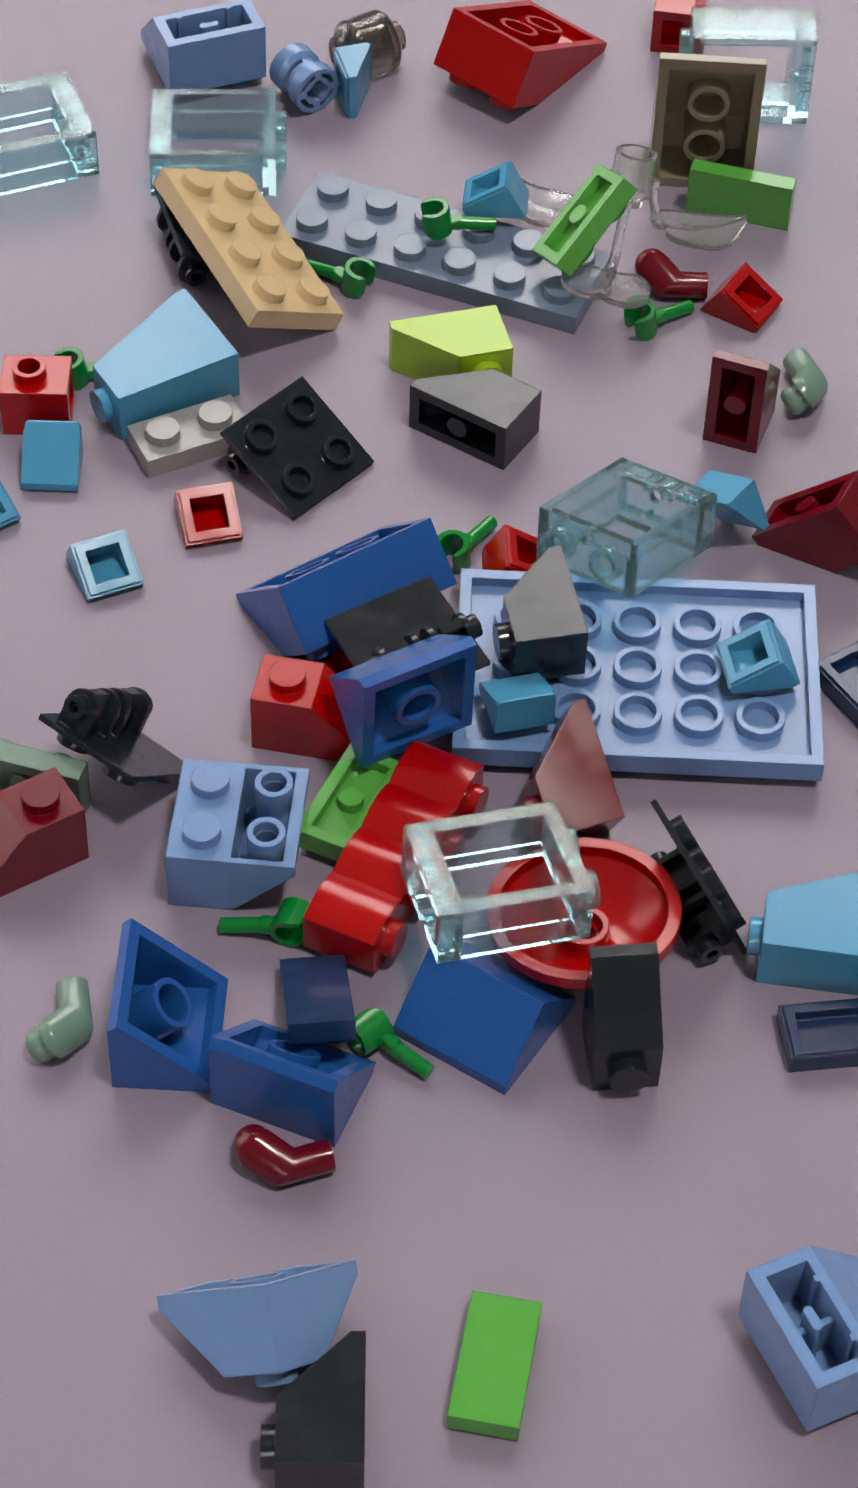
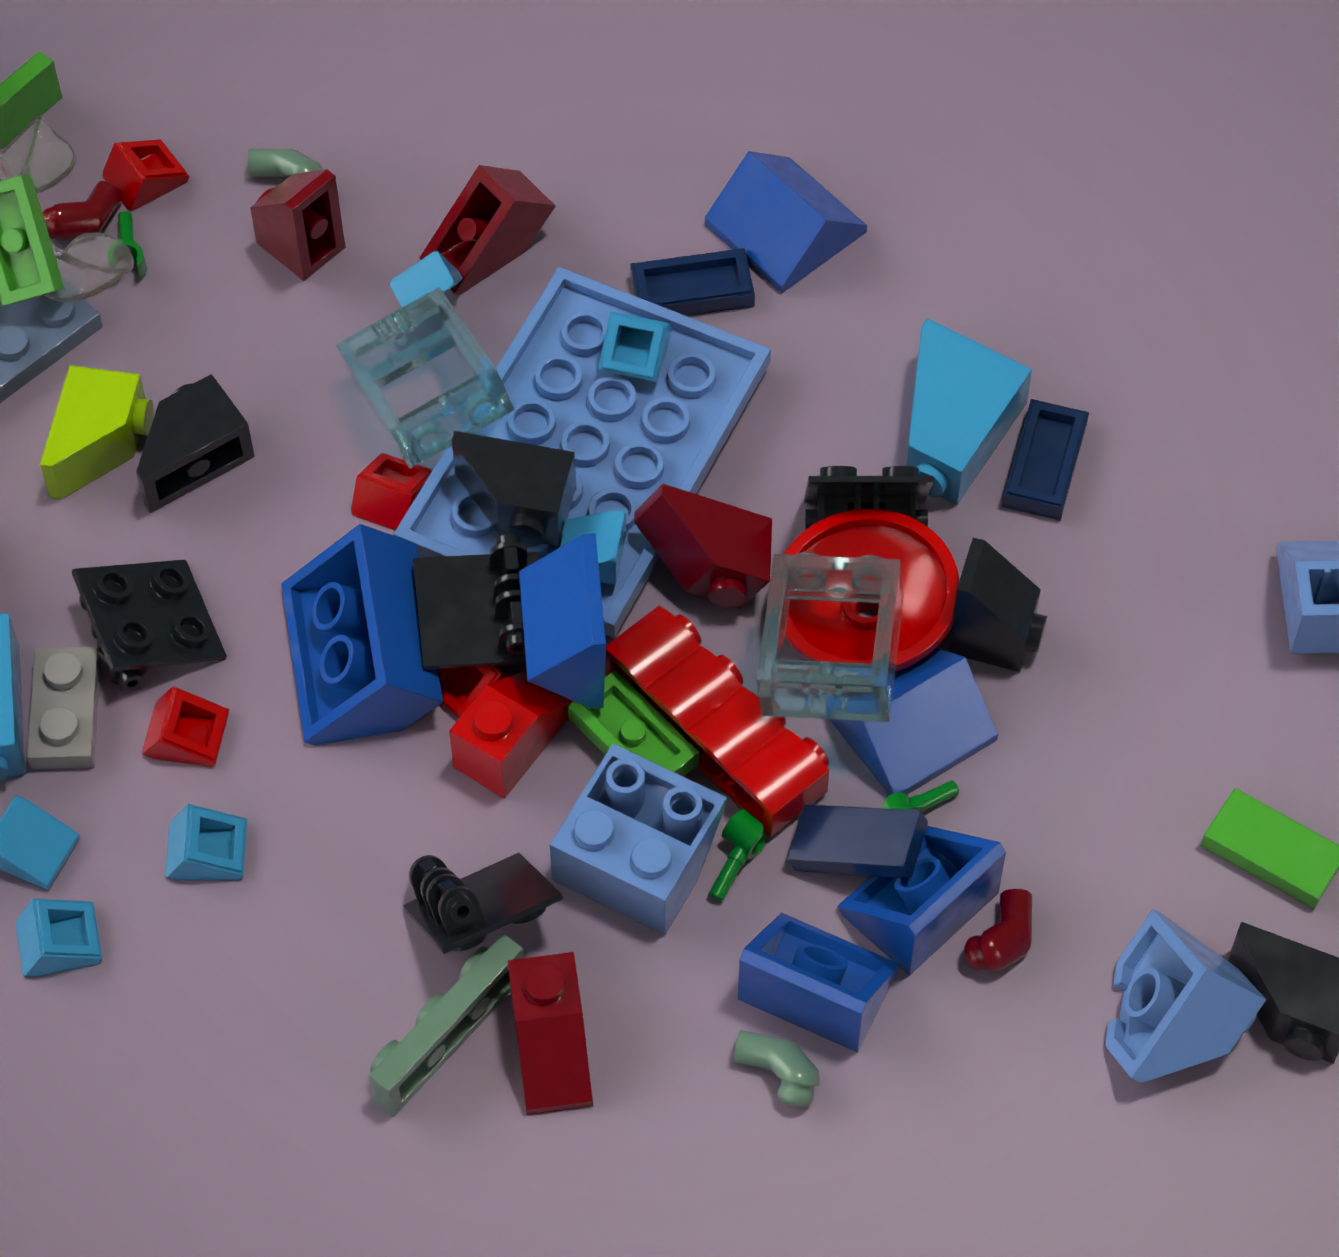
camera: 65 degrees left, 10 degrees up
(462, 543) = (342, 520): green hand -> none

